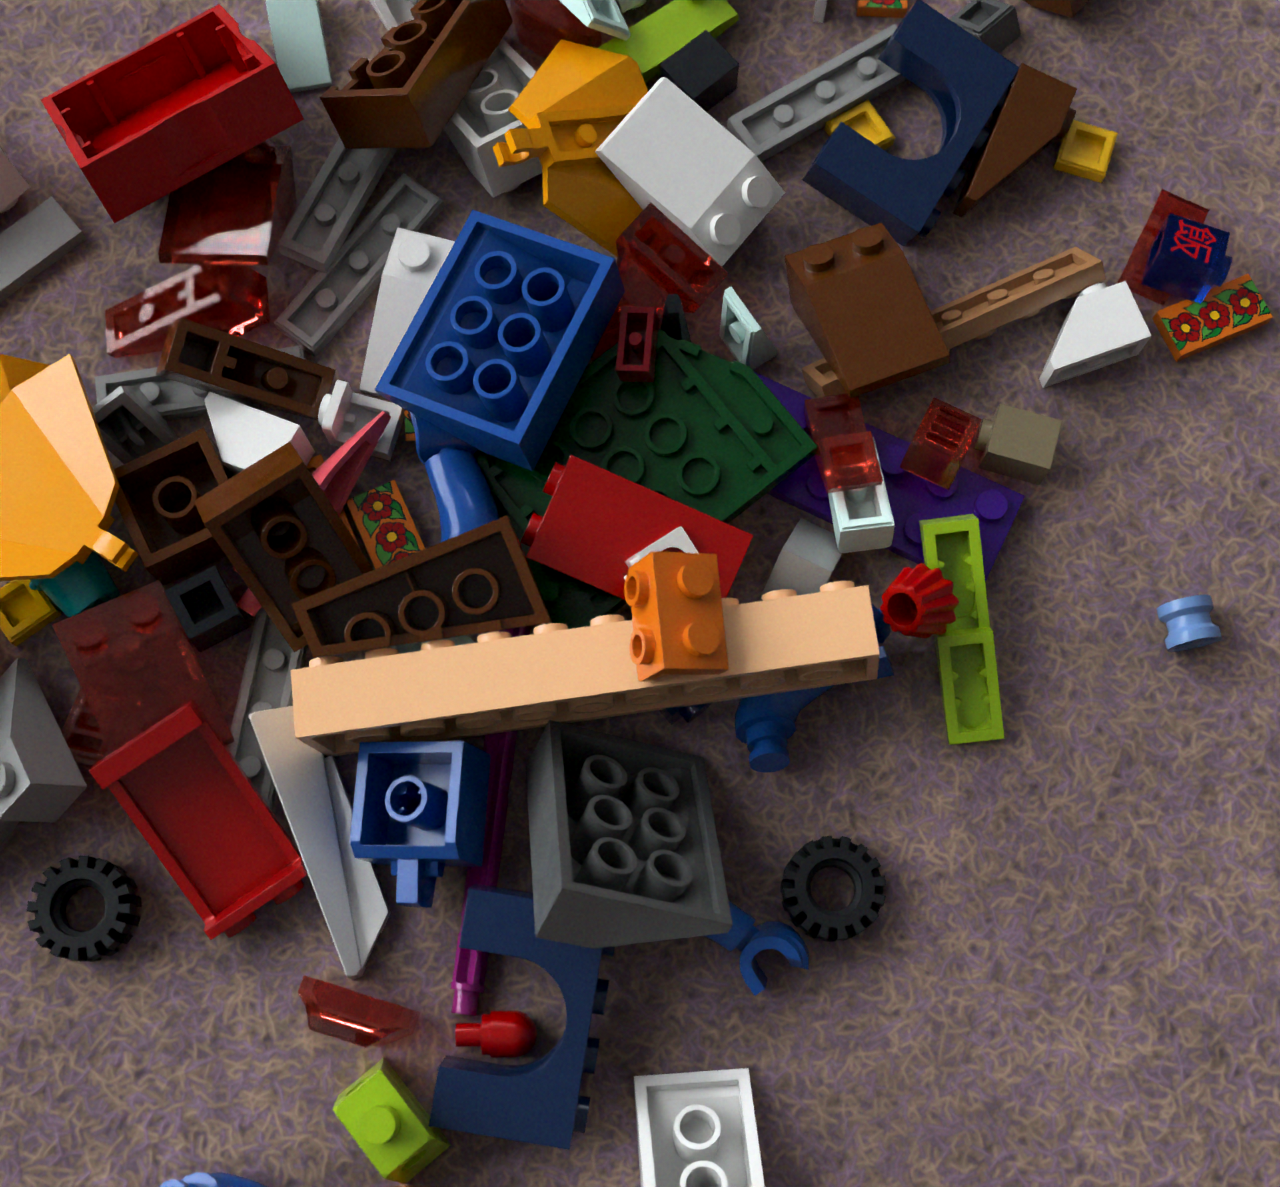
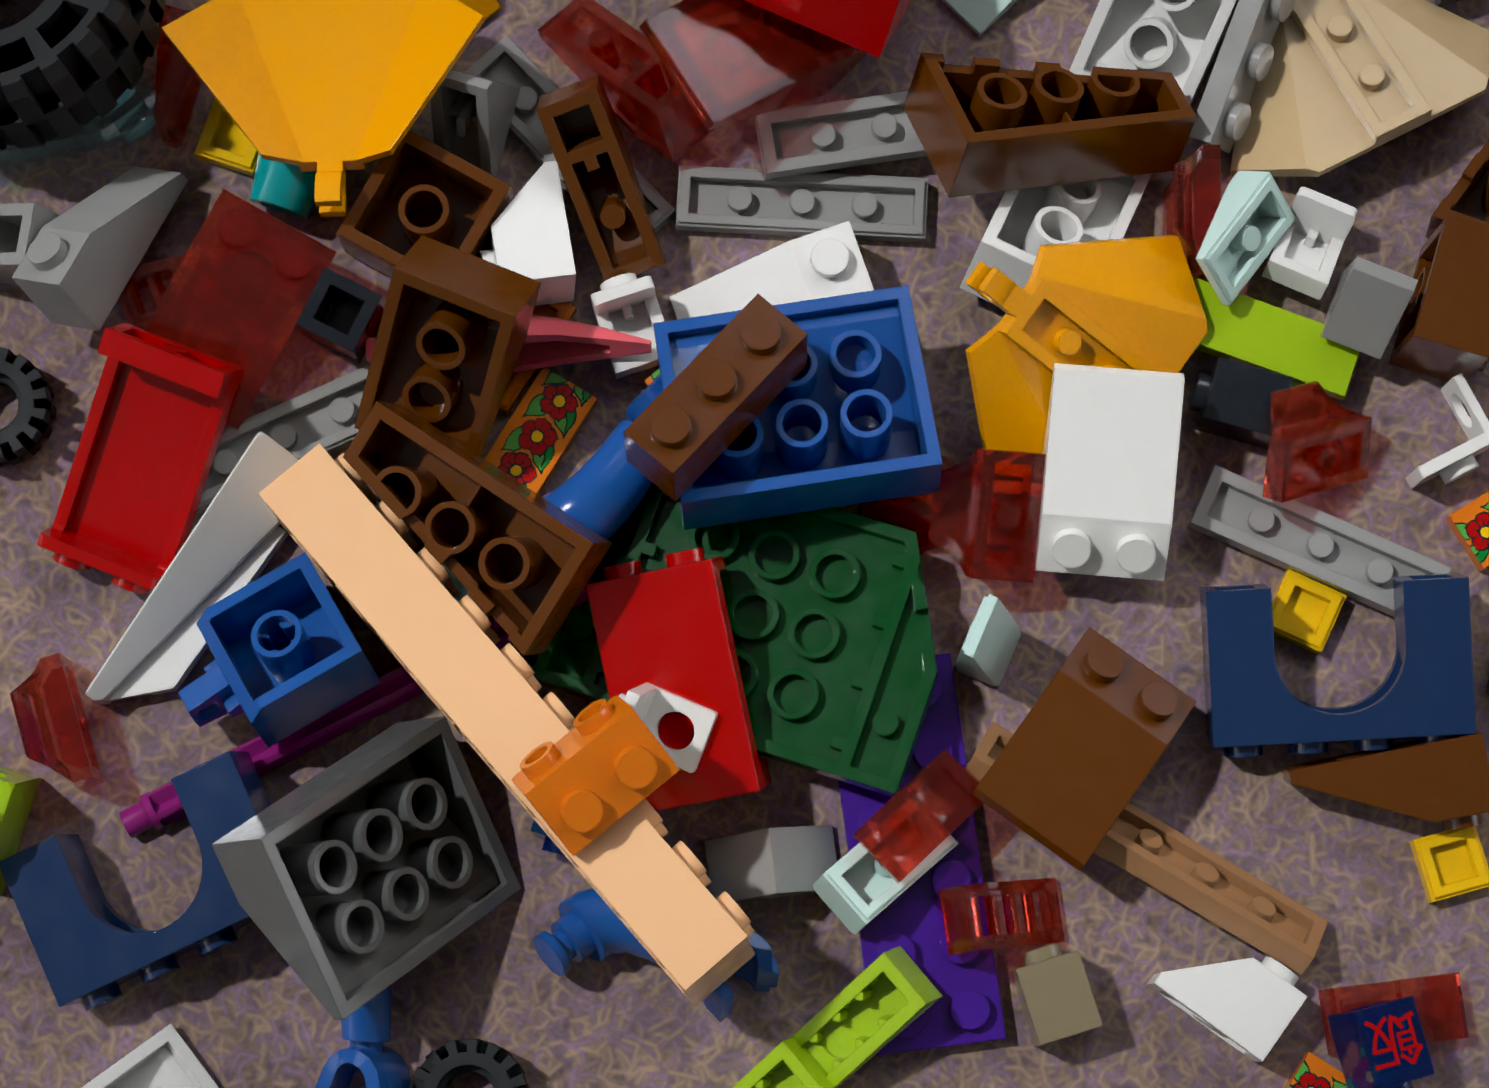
camera: 55 degrees right, 5 degrees up
(462, 368) = (716, 397): none -> reddish brown brick
(499, 1034) = (127, 870): red cylinder -> none
(637, 344) = (883, 543): dark red piece -> none
(674, 319) = (938, 565): black bar -> none
(760, 47) = (1313, 444): none -> clear red slope
(919, 602) = (801, 999): red piece -> none

